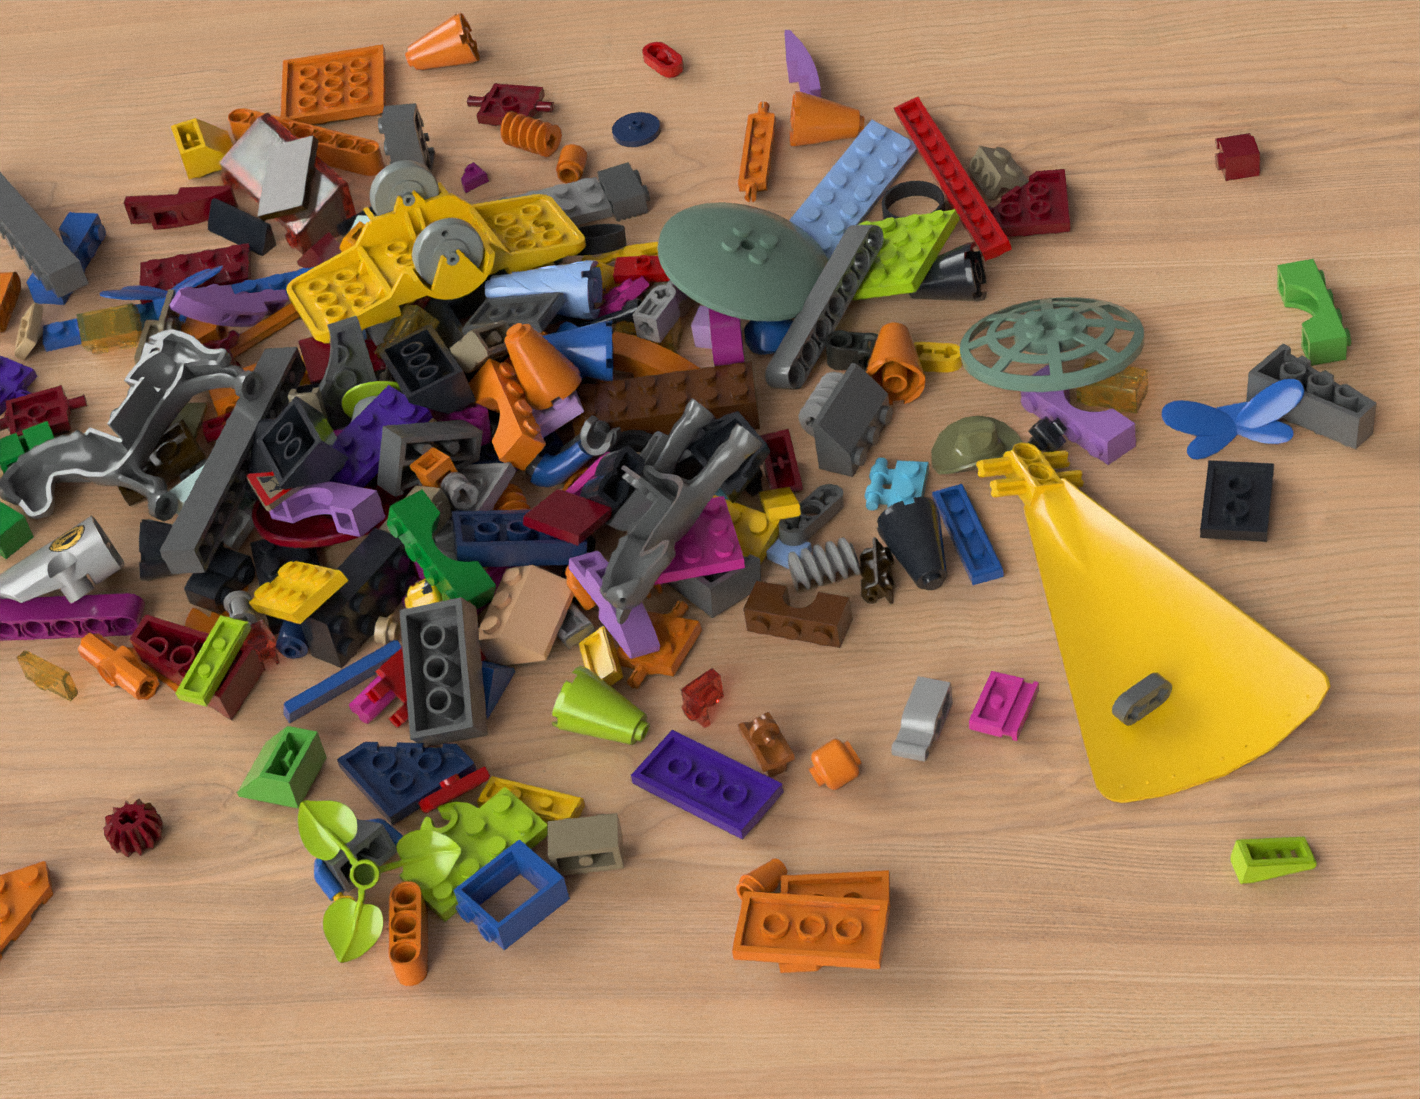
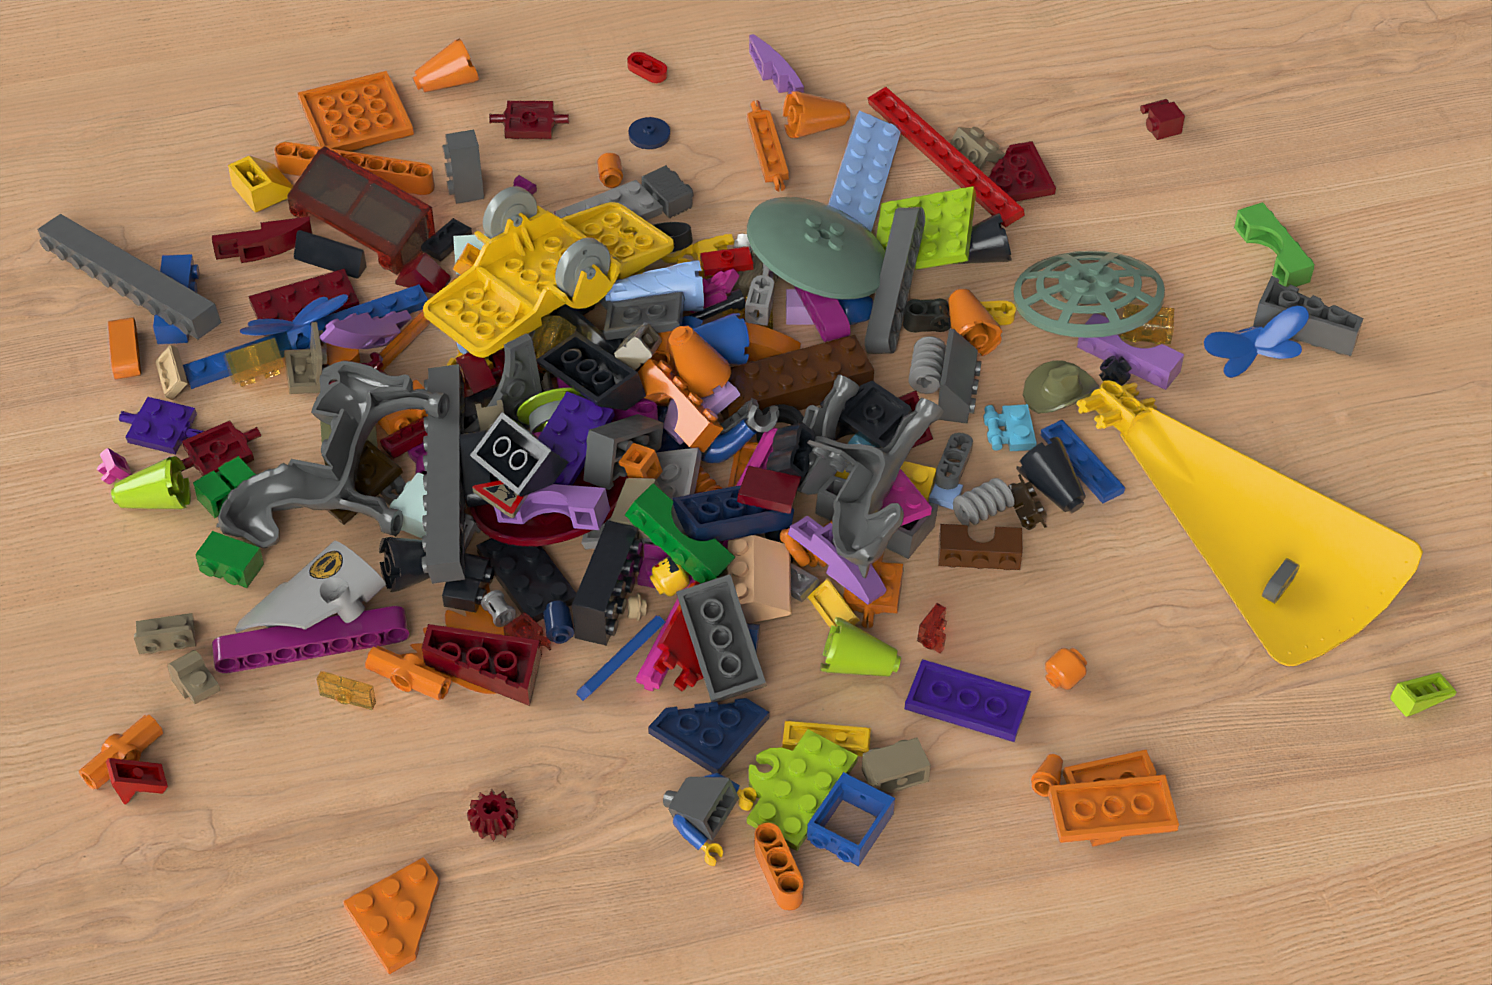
camera: 25 degrees left, 5 degrees up
(213, 660) = (510, 657): lime tile -> none
(285, 768) = (603, 741): bright green slope -> none
(288, 178) = (371, 206): tile -> none
(297, 591) = (562, 585): yellow plate -> none
(349, 924) = (773, 800): lime plant -> none
(453, 788) = (762, 737): red plate -> none
(459, 490) = (671, 480): light grey bush -> none
(530, 134) = (562, 147): orange piece -> none
(767, 744) = (1005, 659): dark orange hips -> none
(779, 503) = (933, 455): yellow tile -> none
(909, 189) = (913, 168): black tyre -> none
(923, 718) = (1117, 620): light grey piece -> none
(1003, 705) = (1174, 601): dark pink plate -> none
(1237, 501) = (1281, 408): black plate -> none

